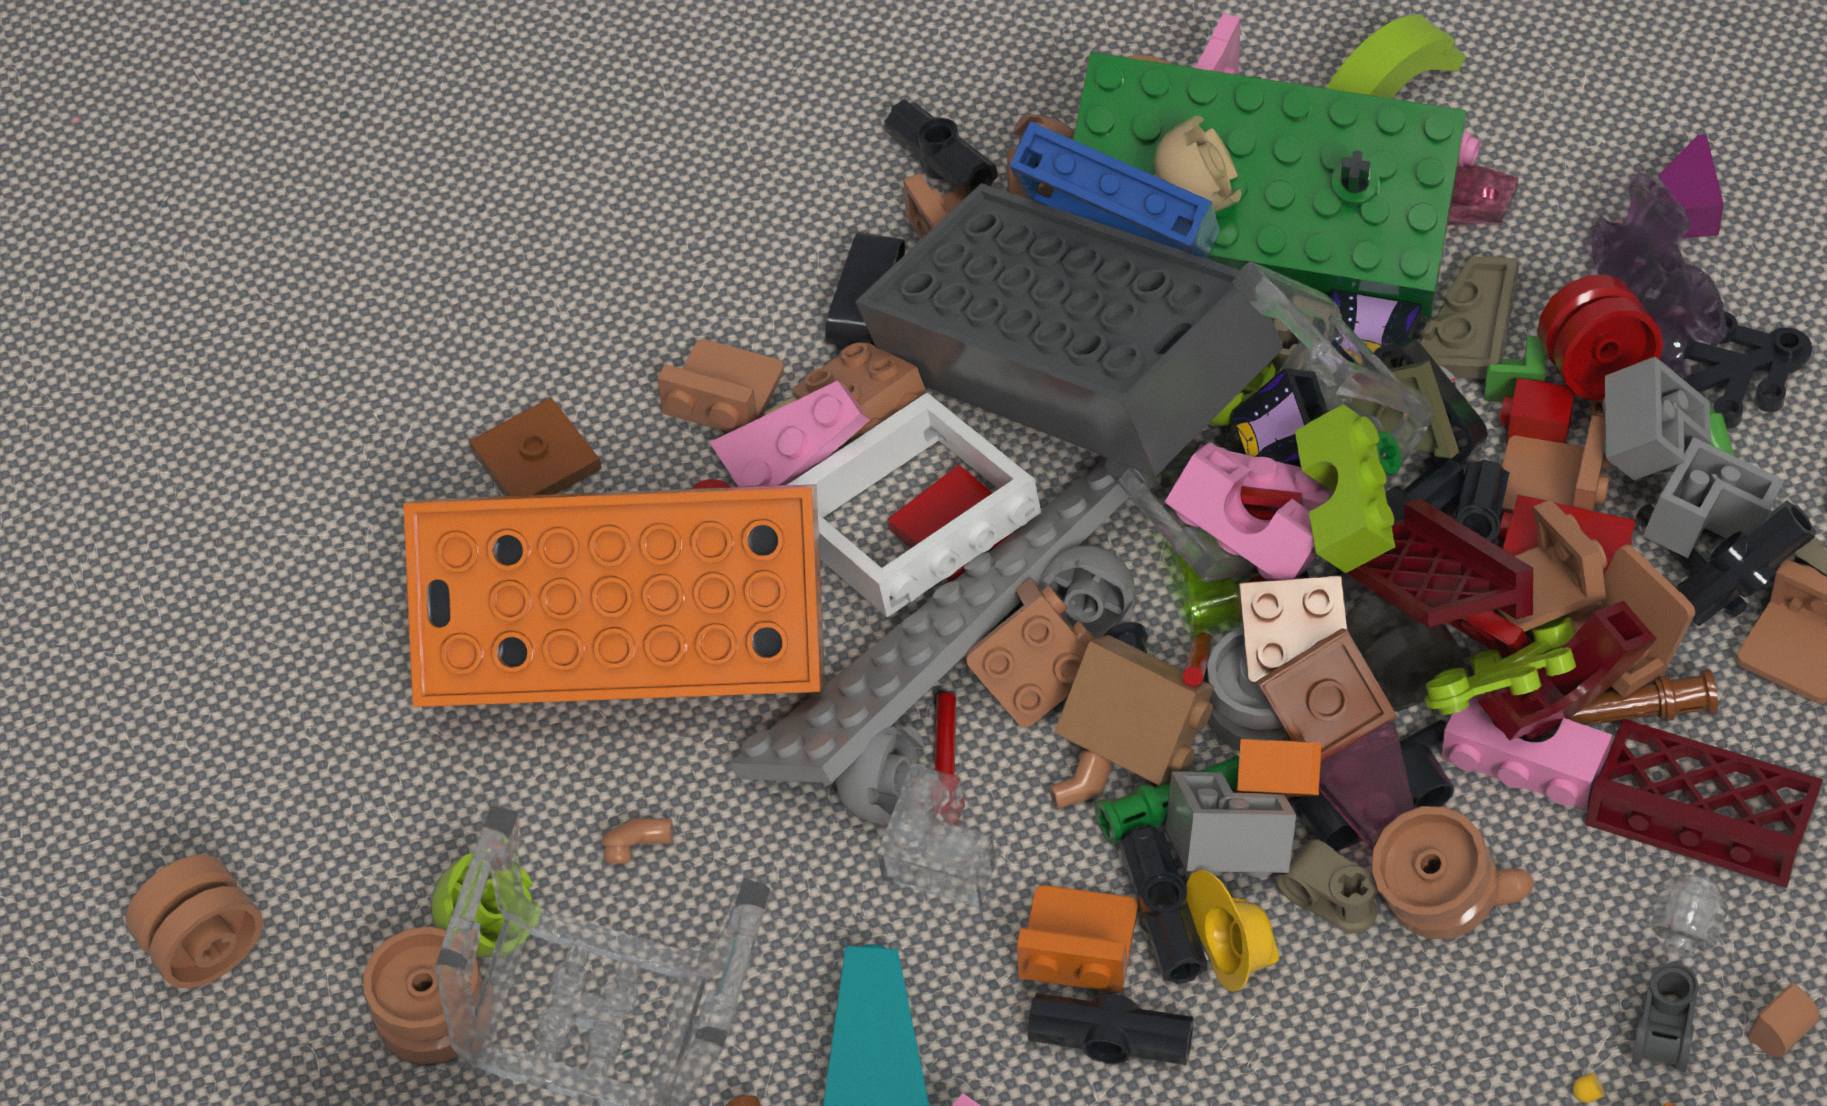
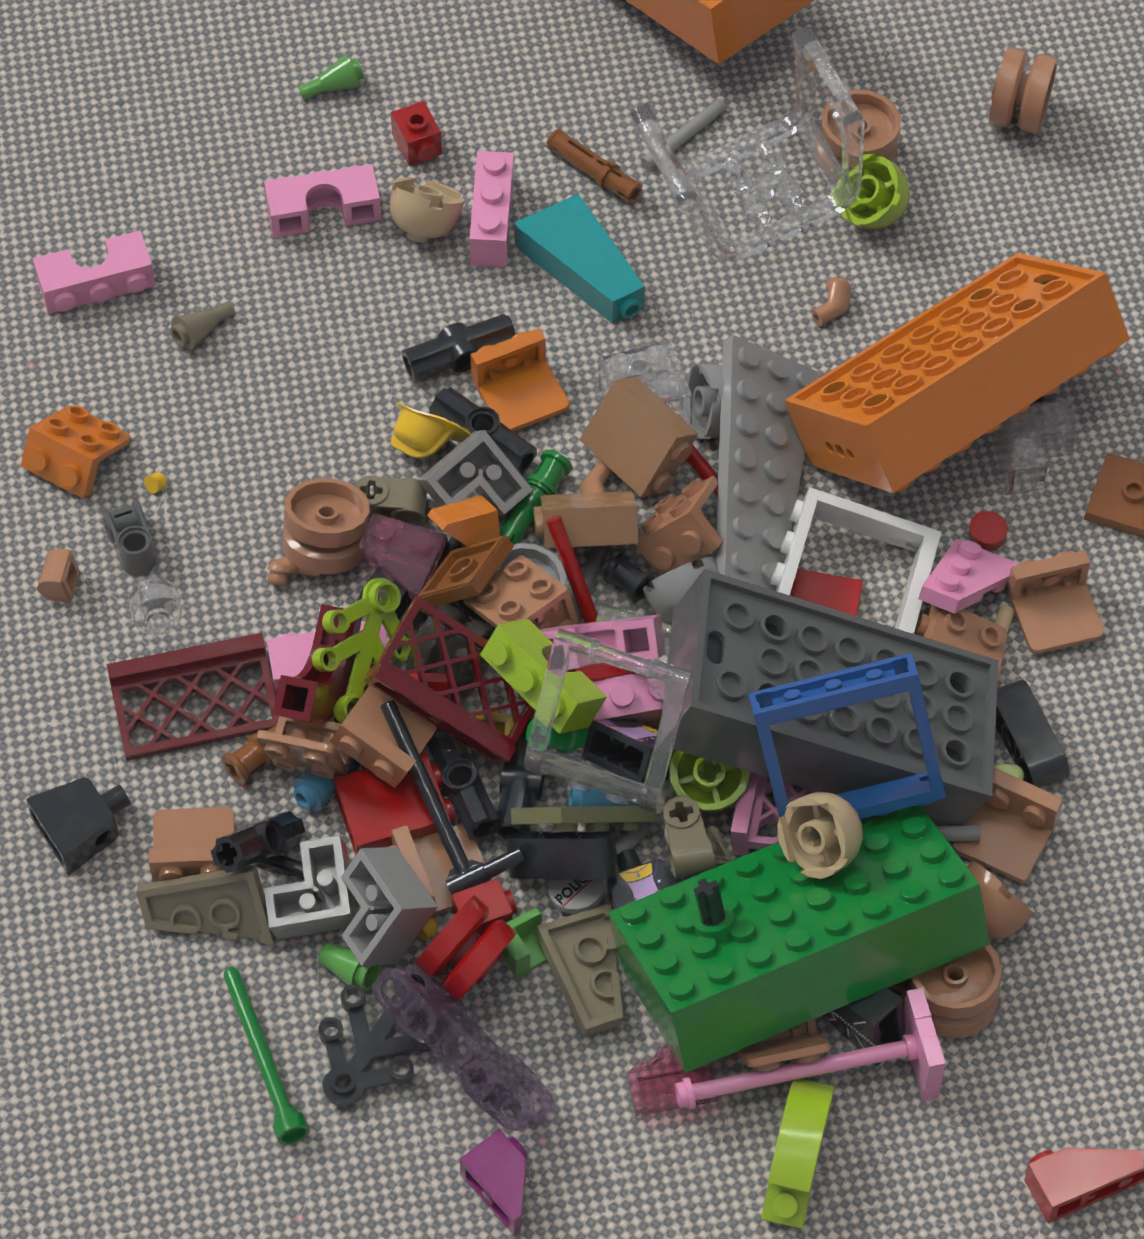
camera: 140 degrees right, 5 degrees up
(939, 147) = (1053, 864): black piece -> none
(1004, 768) = (639, 437): none -> medium nougat brick
(1540, 444) = (465, 872): none -> black bar

